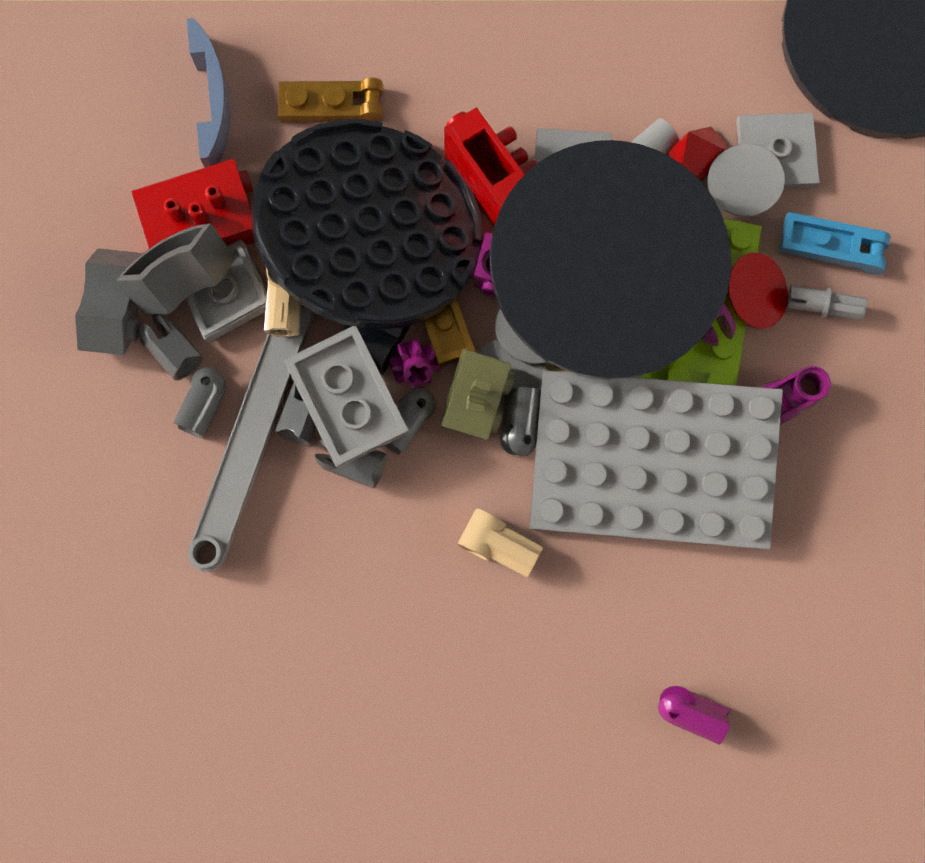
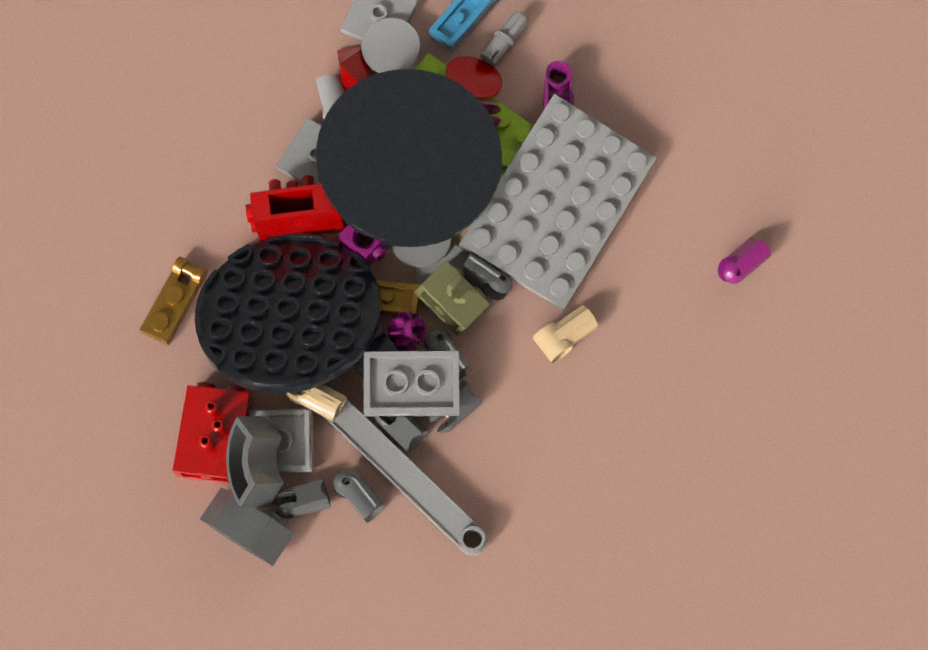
camera: 60 degrees left, 5 degrees down
(214, 133) = (88, 371): sand blue slope -> none

